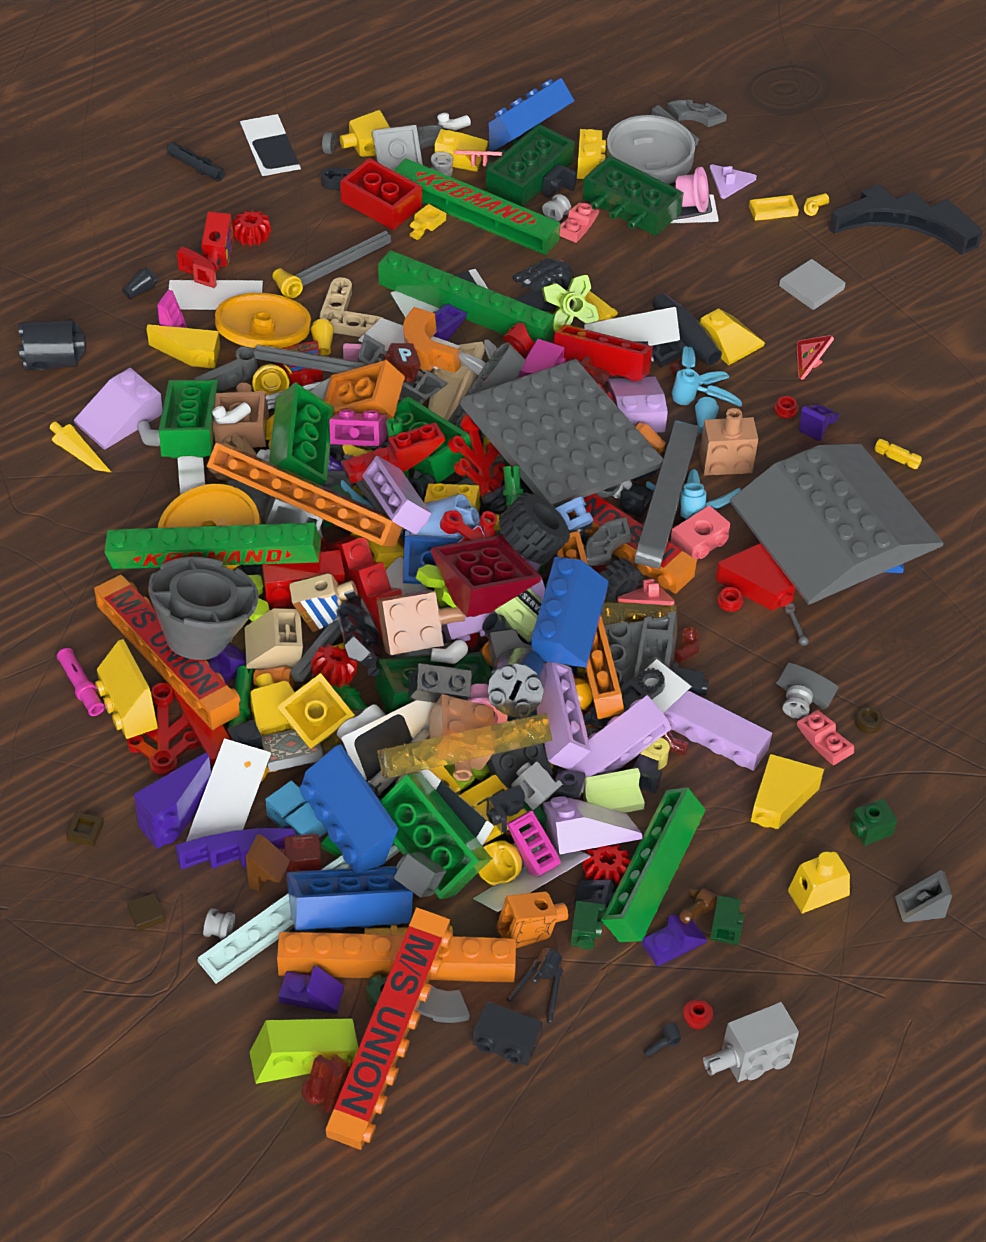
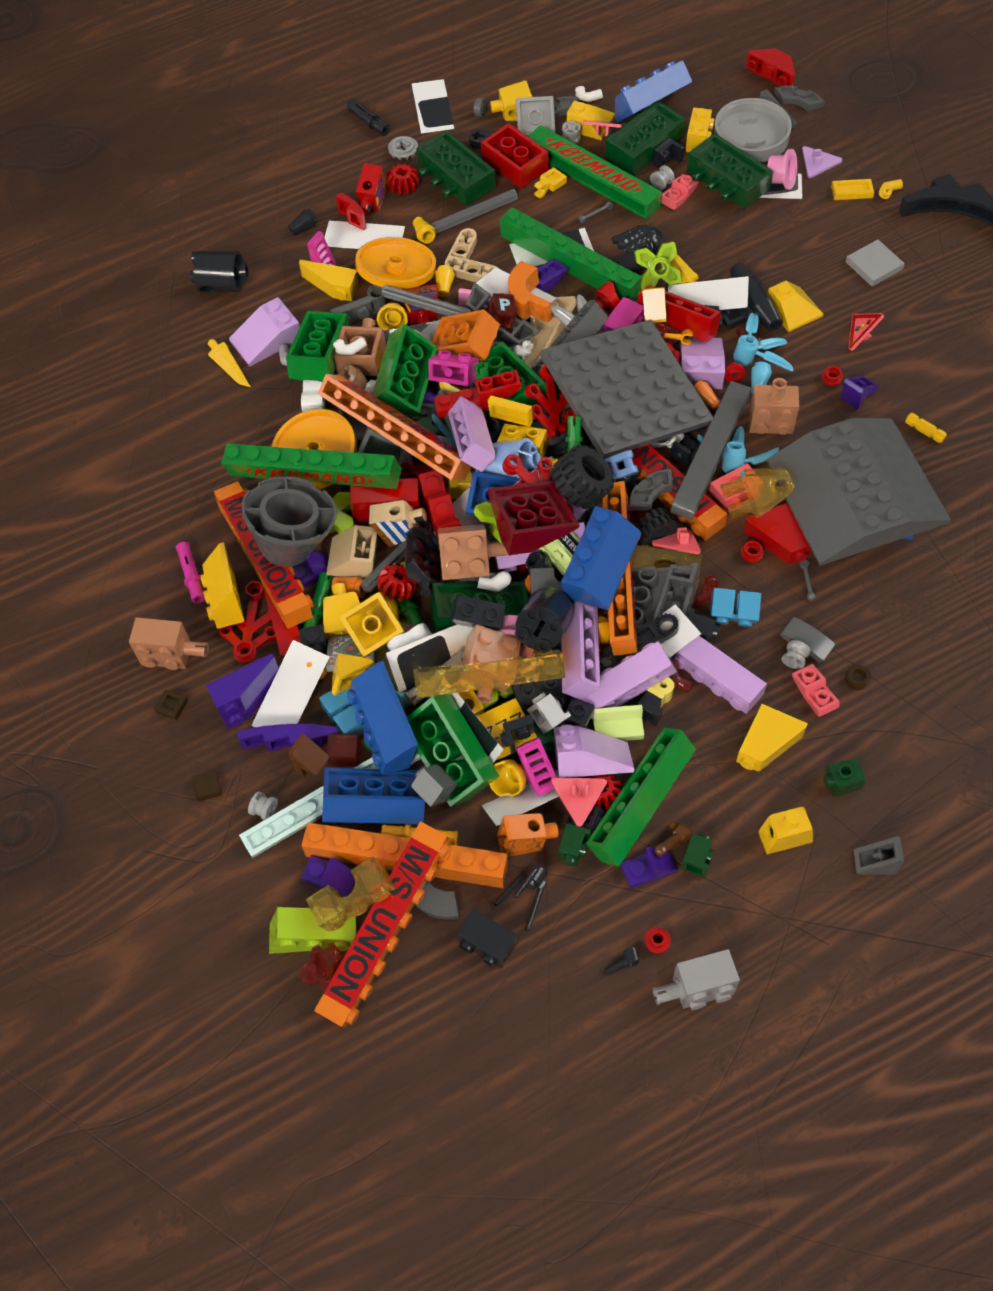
camera: 15 degrees right, 10 degrees up
(68, 760) = (163, 644): none -> nougat brick
(248, 188) = (408, 144): none -> light grey gear
(293, 764) = (346, 669): none -> yellow slope
(313, 212) = (455, 168): none -> dark green piece
(335, 1013) = (371, 886): none -> clear yellow arch
(433, 403) = (523, 350): none -> white arm
(435, 468) = (510, 411): none -> yellow tile
(499, 243) = (609, 205): none -> dark grey hinge
(577, 343) = (654, 304): none -> slope
(585, 869) = (578, 795): none -> coral piece
(610, 377) = (687, 332): none -> light orange hand
(660, 79) = (772, 65): none -> red slope
(673, 407) = (732, 368): none -> red plate
(729, 660) = (746, 611): none -> dark azure piece
(730, 530) = (761, 490): none -> clear yellow piece

